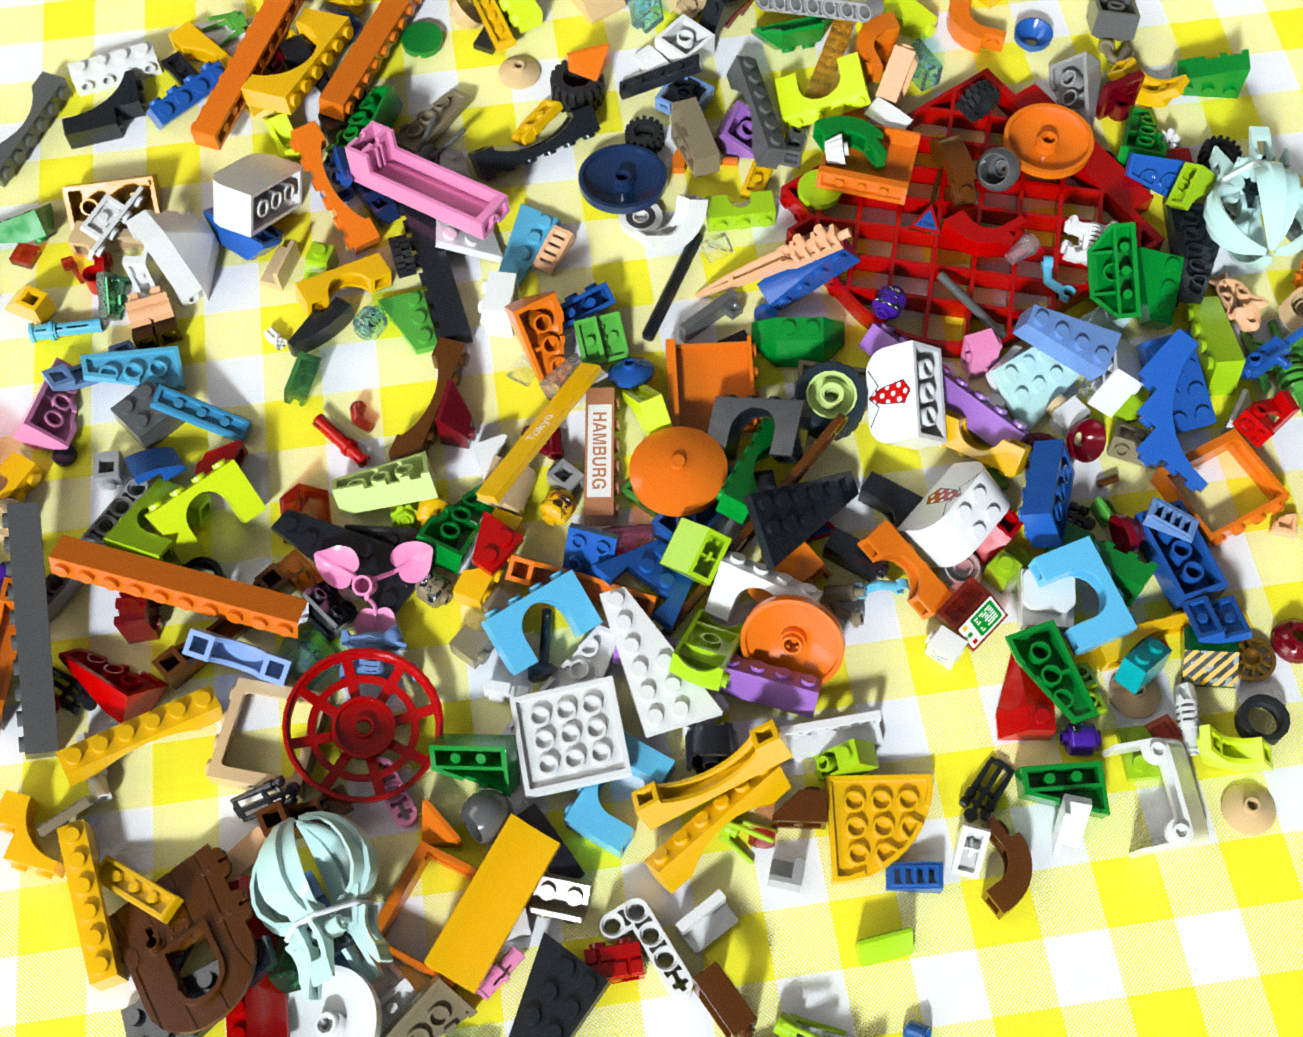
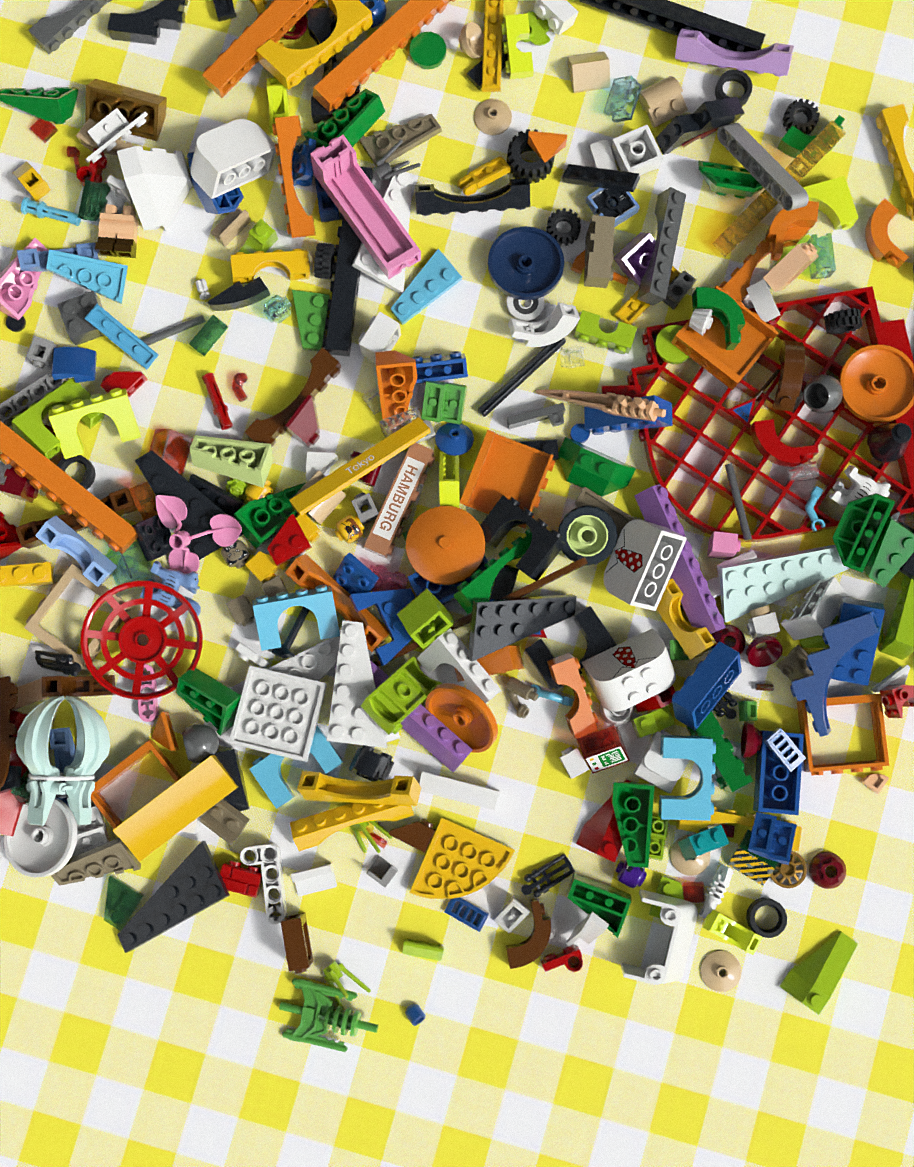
camera: 25 degrees right, 20 degrees up
(185, 97) = (217, 30): blue brick -> none
(260, 389) = (174, 330): none -> dark grey bar
(500, 972) = (166, 850): bright pink pin -> none
(560, 238) = (440, 298): light nougat slope -> none
(848, 758) = (461, 813): lime slope -> none
(849, 95) = (743, 267): neon yellow arch -> none
(889, 302) = (675, 472): dark purple head -> none
(1048, 884) = (553, 961): none -> red plate
(1068, 340) = (795, 574): medium blue wedge -> none
(1093, 184) = (889, 441): none -> black cone

